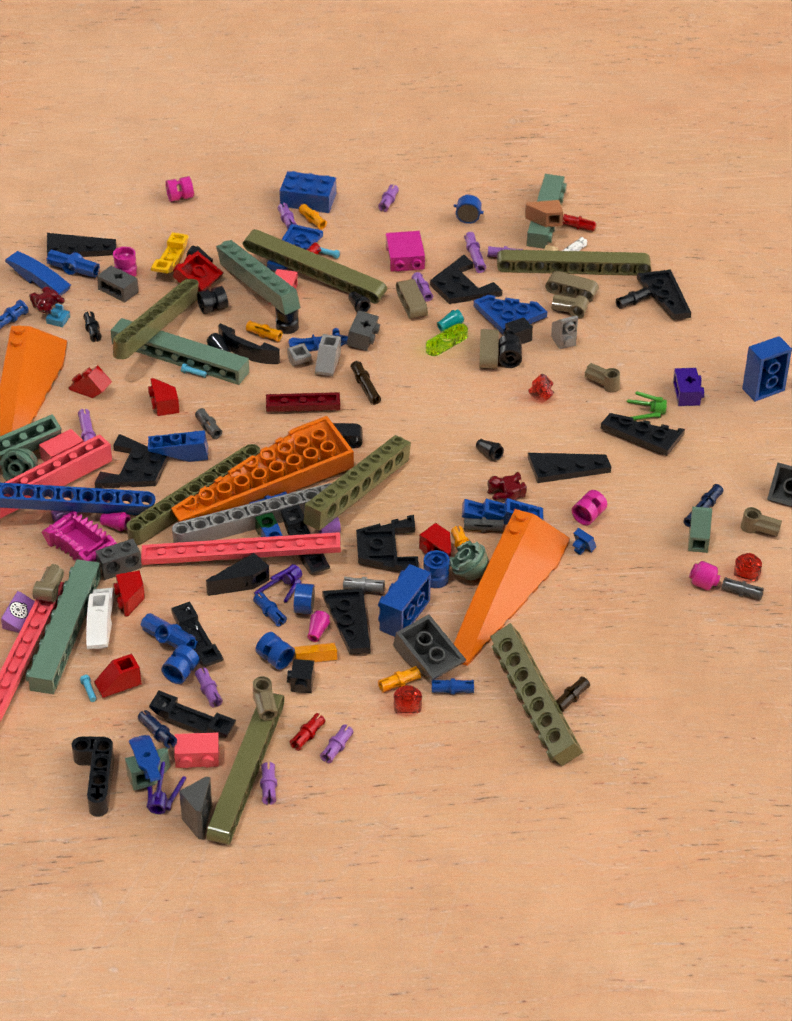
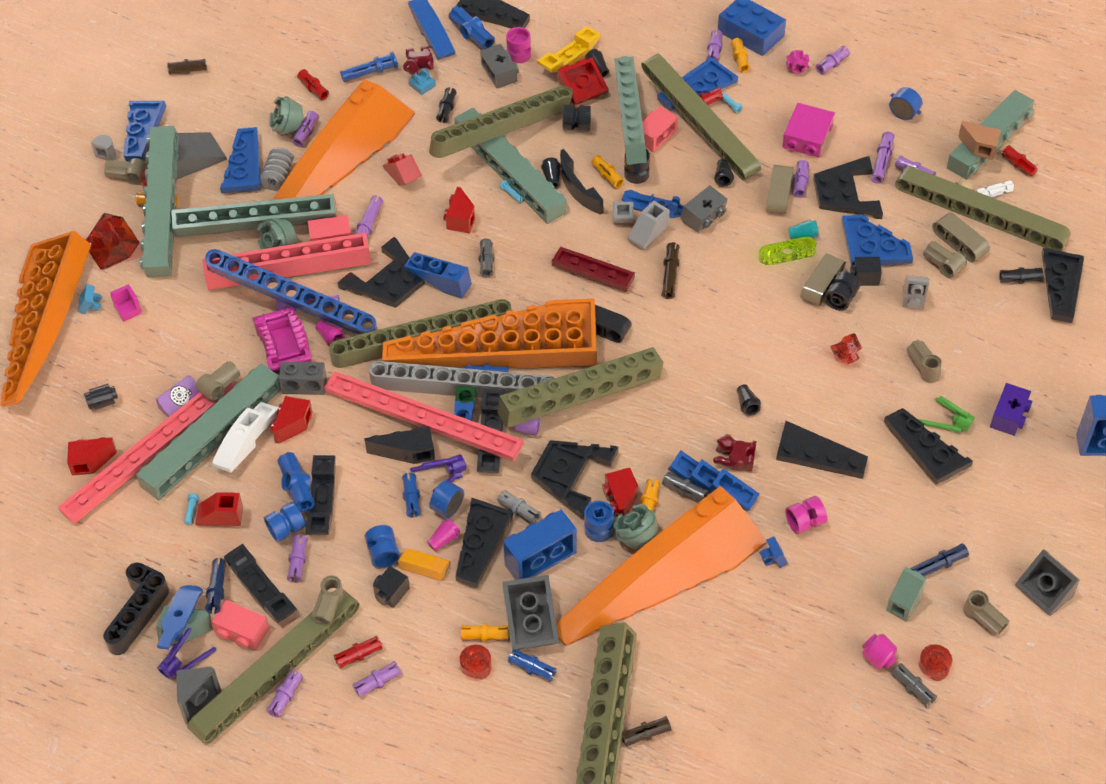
camera: 30 degrees right, 10 degrees up
(363, 206) = (797, 61): none -> dark pink gear

